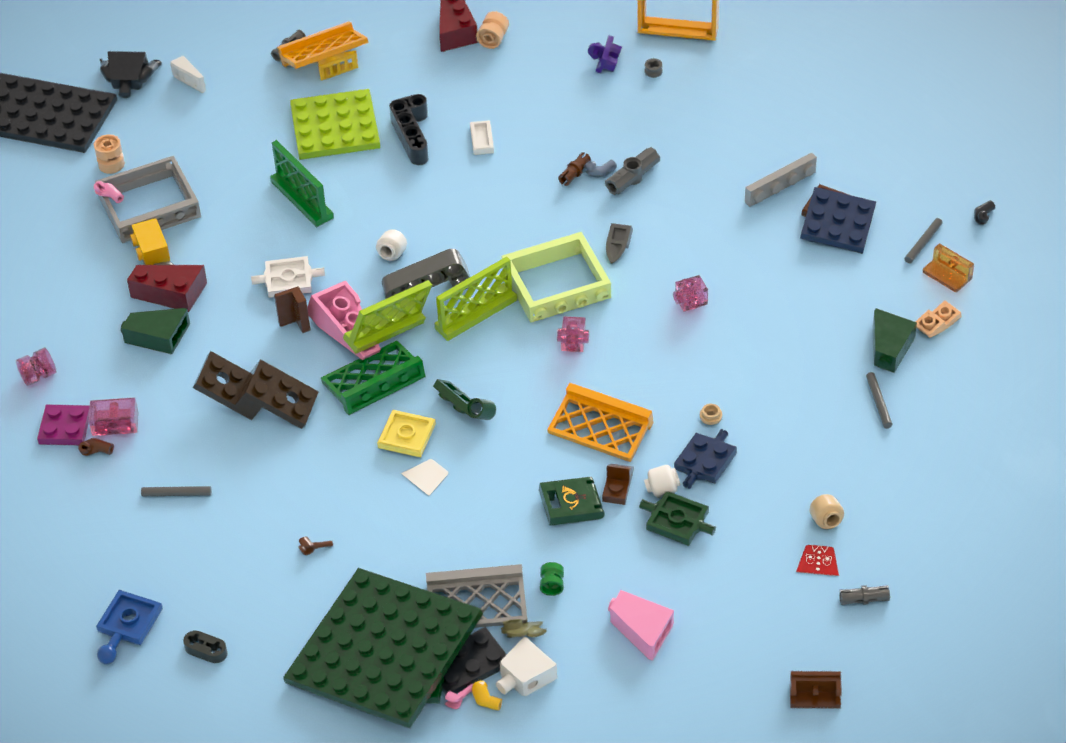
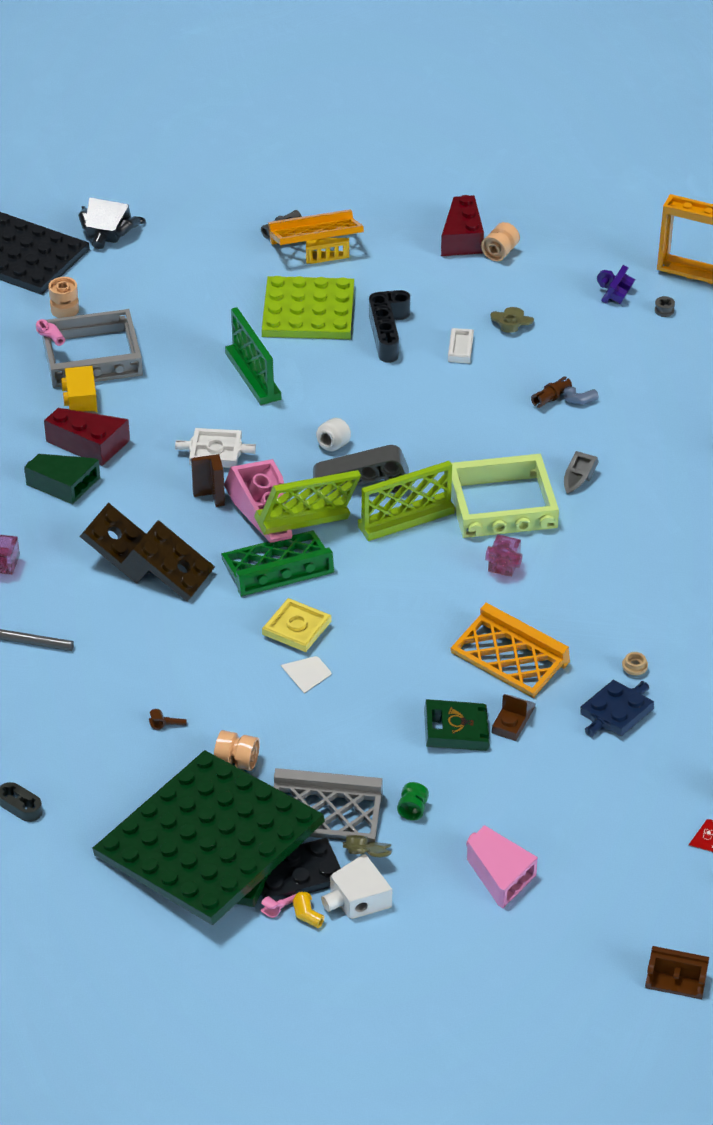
camera: 10 degrees right, 5 degrees down
(188, 74) = (167, 234): white slope -> none
(386, 562) = (237, 750): none -> light nougat wheel
(463, 403) = (375, 610): dark green plate -> none
(520, 103) = (511, 319): none -> olive plate
(632, 170) = (613, 403): dark grey piece -> none
(662, 480) = (562, 722): white head -> none
(677, 518) = (569, 763): dark green plate -> none
(691, 293) = (644, 536): clear pink brick -> none

